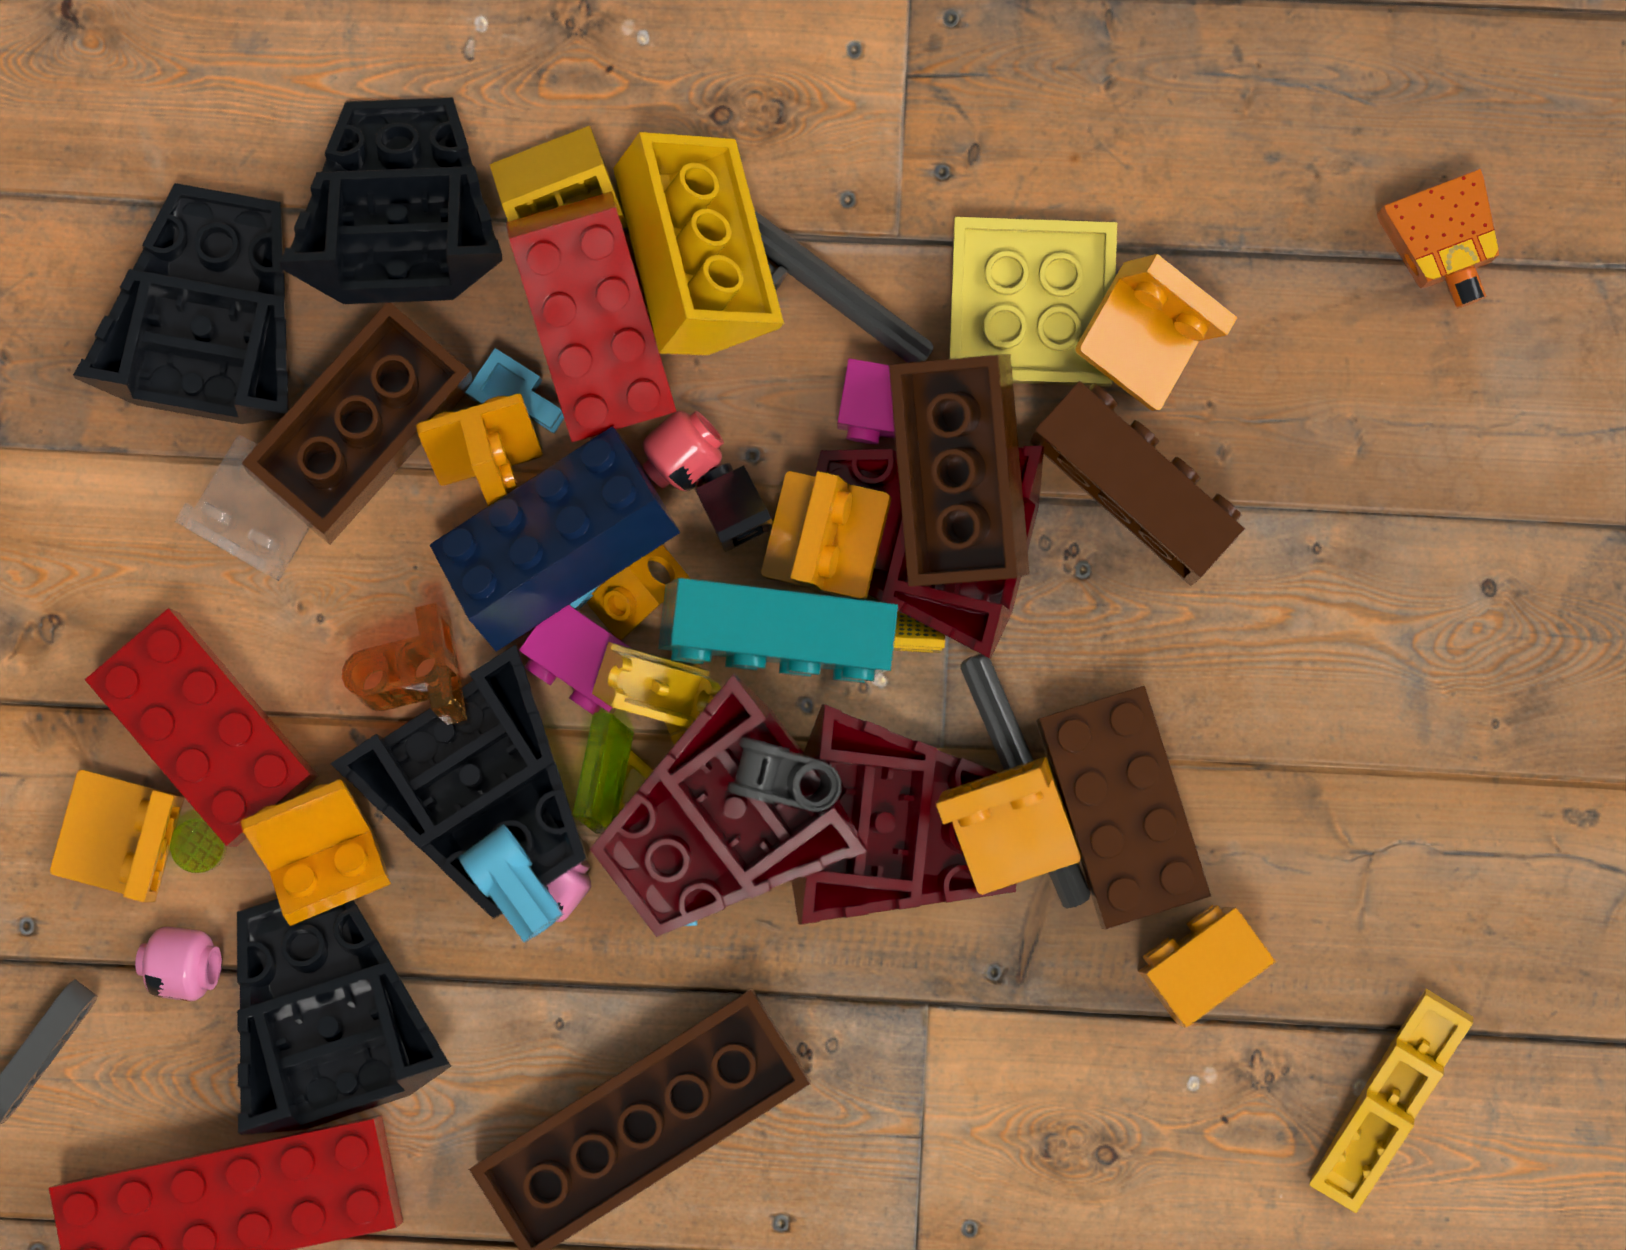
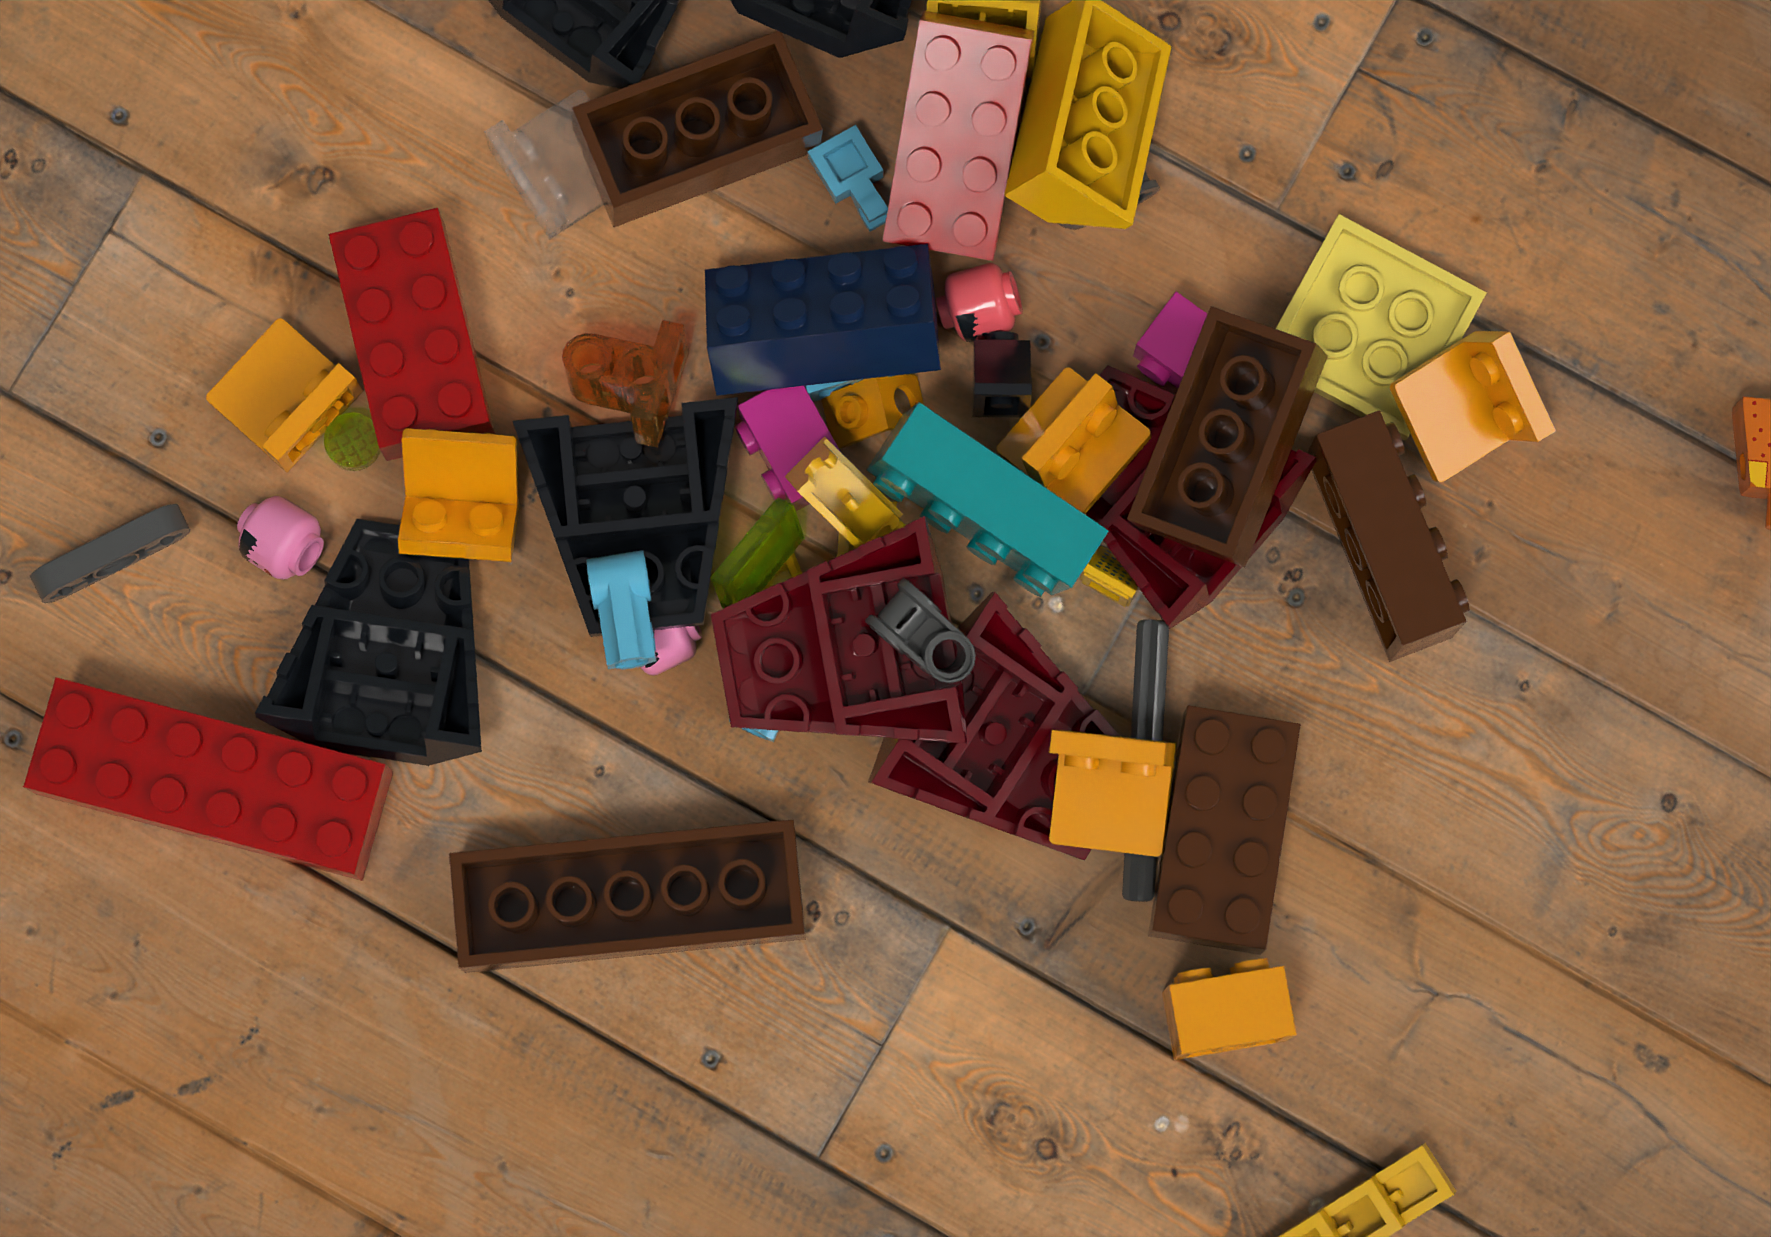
camera: 20 degrees right, 5 degrees down
(481, 444) = (799, 202): light orange bracket -> none
(843, 294) = (1196, 228): dark grey axle -> none

